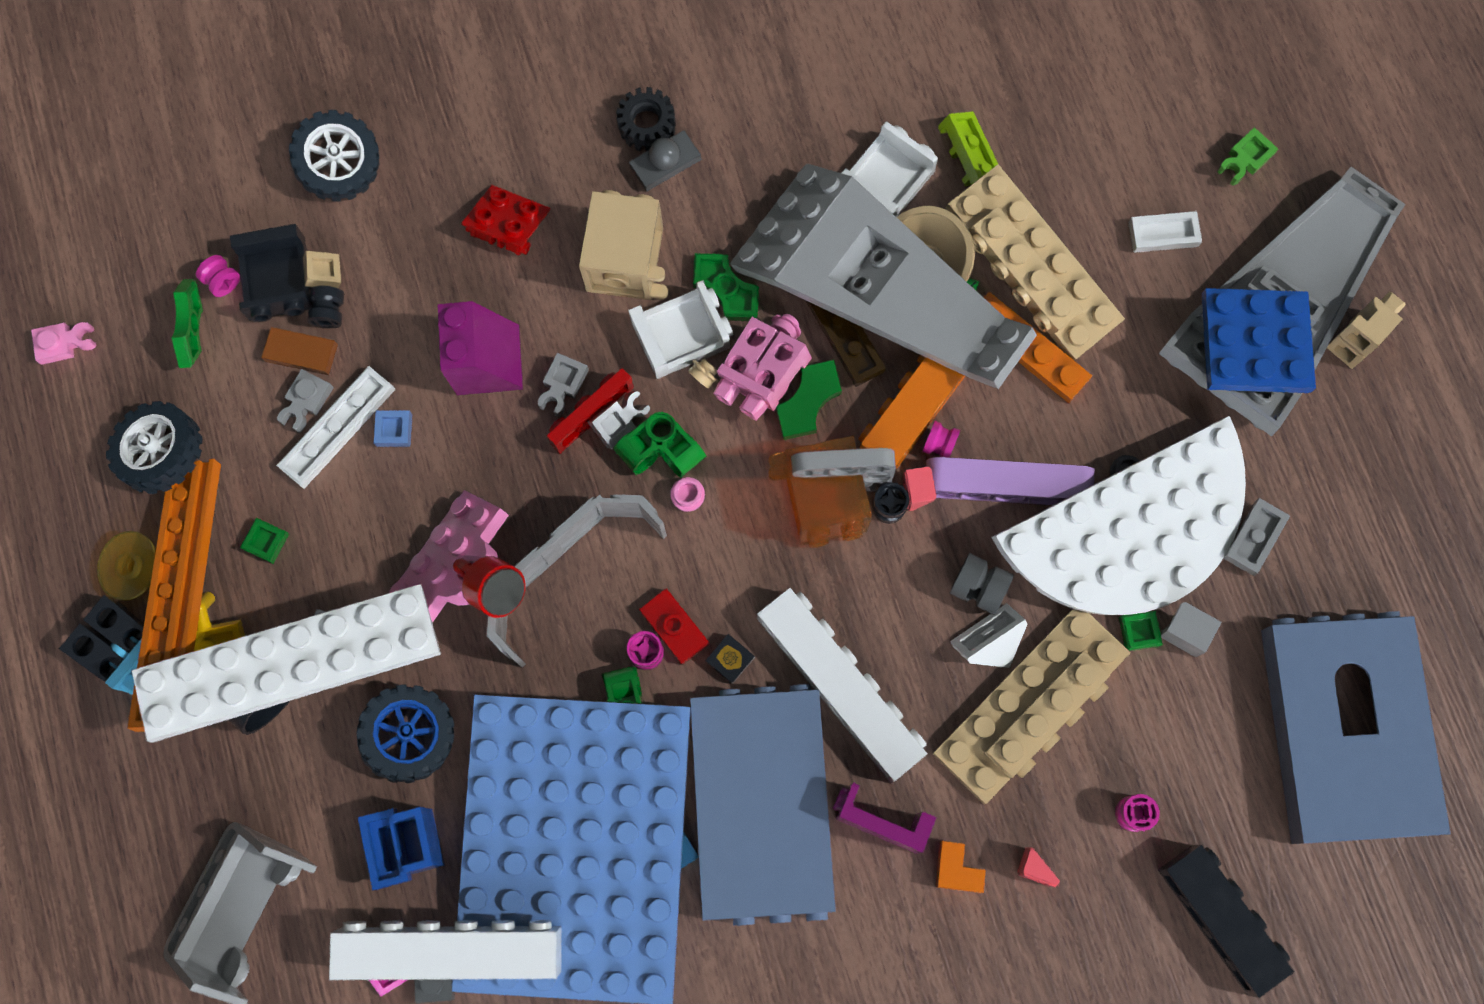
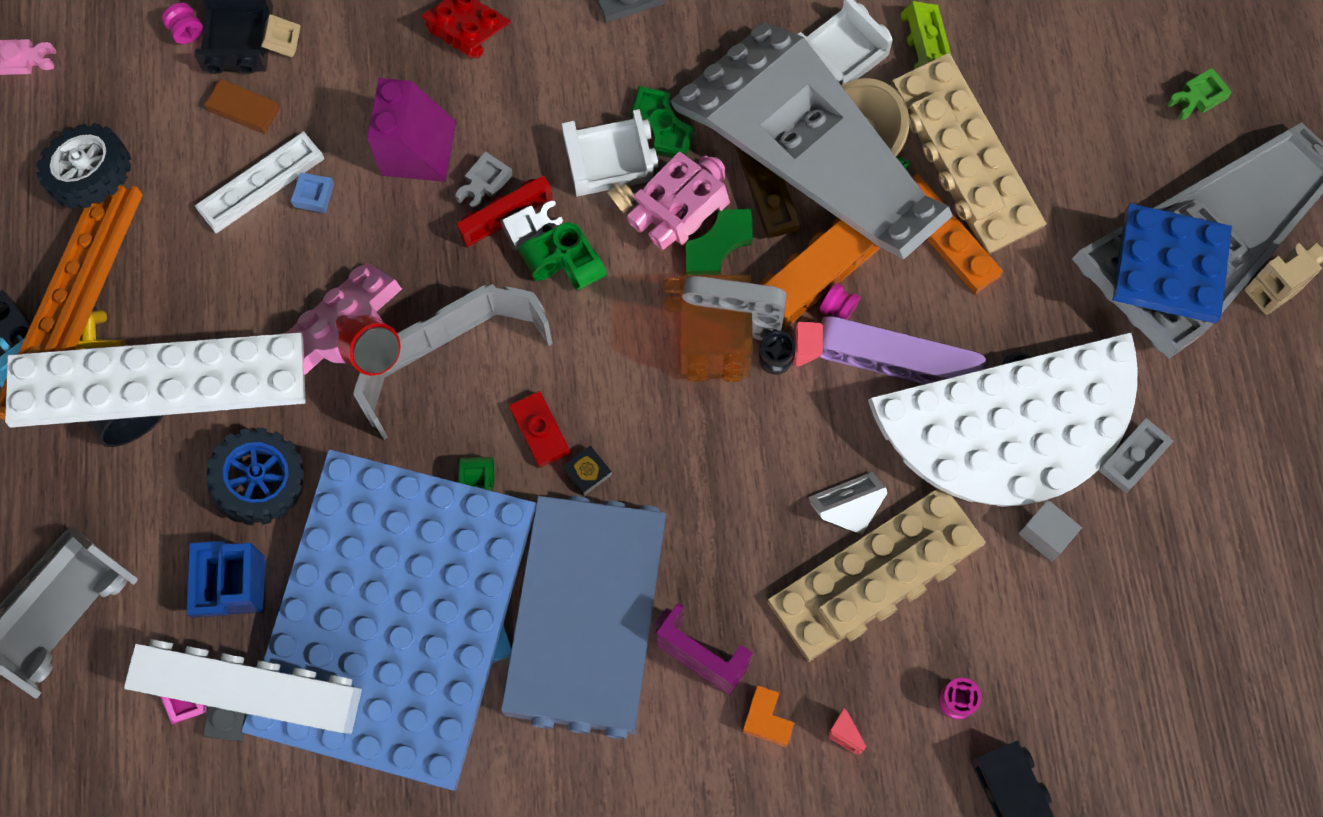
camera: 10 degrees right, 5 degrees down
(126, 565) = (30, 268): clear yellow dish -> none
(186, 331) = (143, 58): green tile -> none
(264, 540) = (166, 273): green tile -> none
(306, 395) = (237, 147): light grey plate -> none
(325, 307) = (276, 69): black wheel -> none
(623, 246) = (569, 64): tan container -> none
(645, 644) = (503, 438): dark pink wheel -> none
(687, 494) = (581, 307): bright pink plate -> none
(841, 685) = (691, 517): white brick -> none
(981, 584) = (850, 445): dark grey wheel -> none
(1140, 631) = (1001, 524): green tile -> none
(1165, 231) = (1104, 150): white tile -> none
(1357, 783) = (1190, 714): sand blue panel -> none

